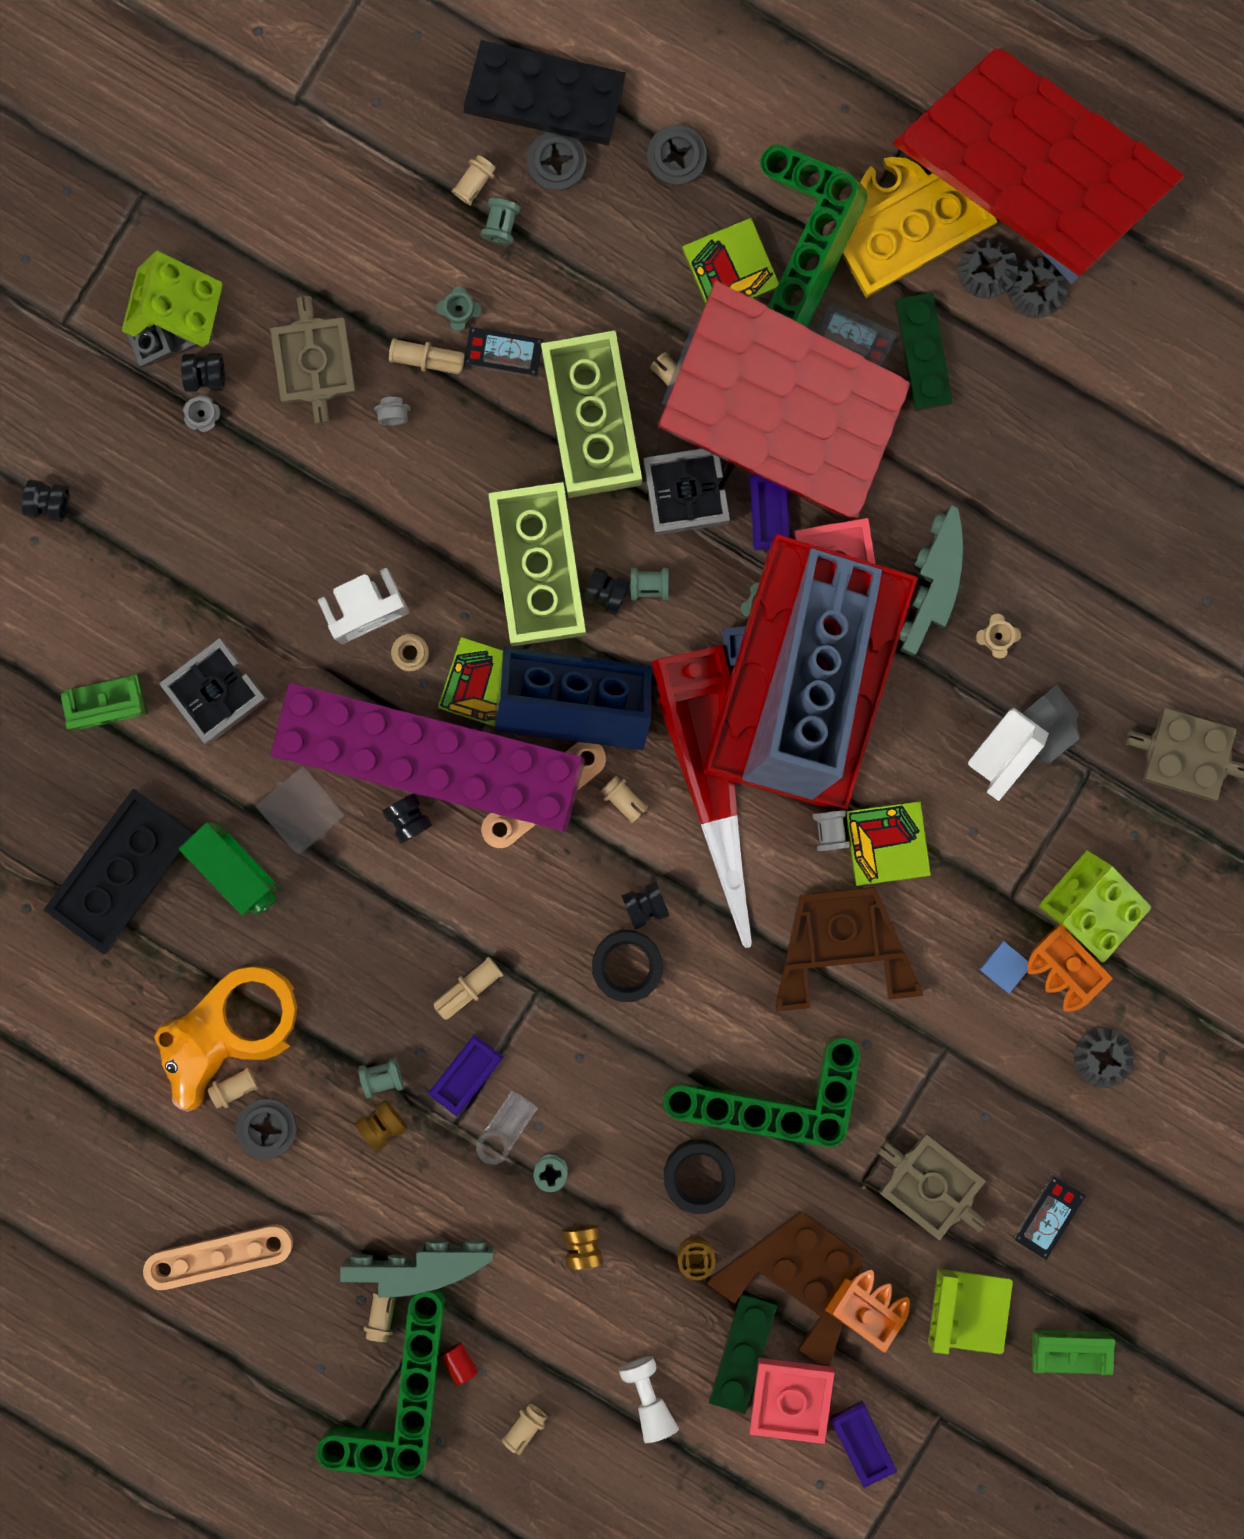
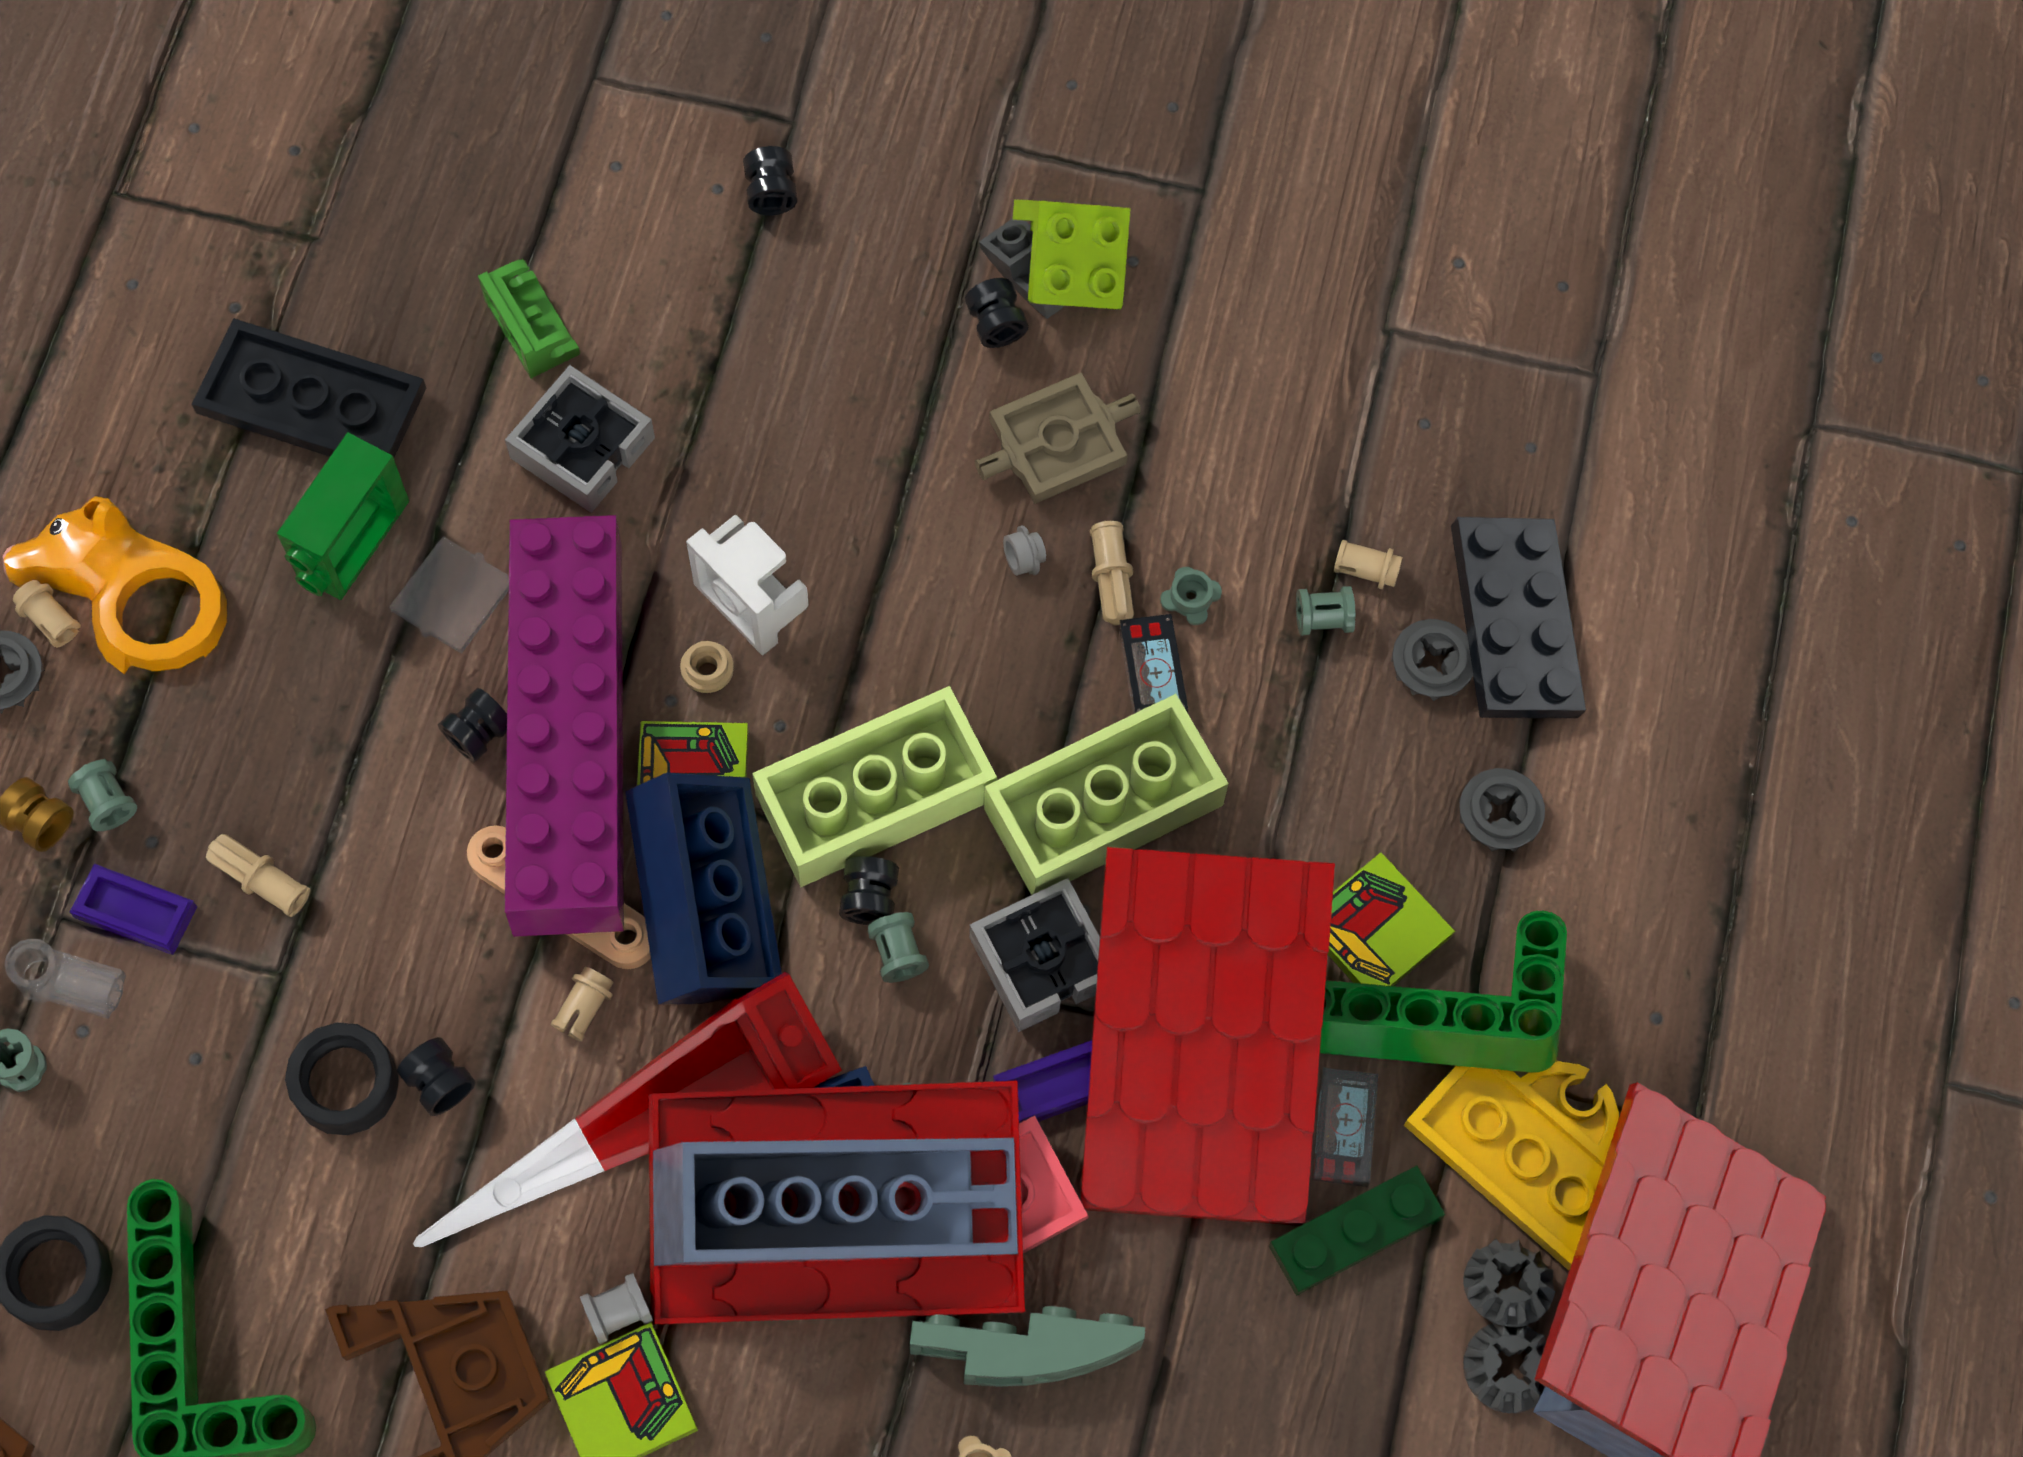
camera: 70 degrees right, 20 degrees down
(191, 411) = (948, 316): light grey plate -> none

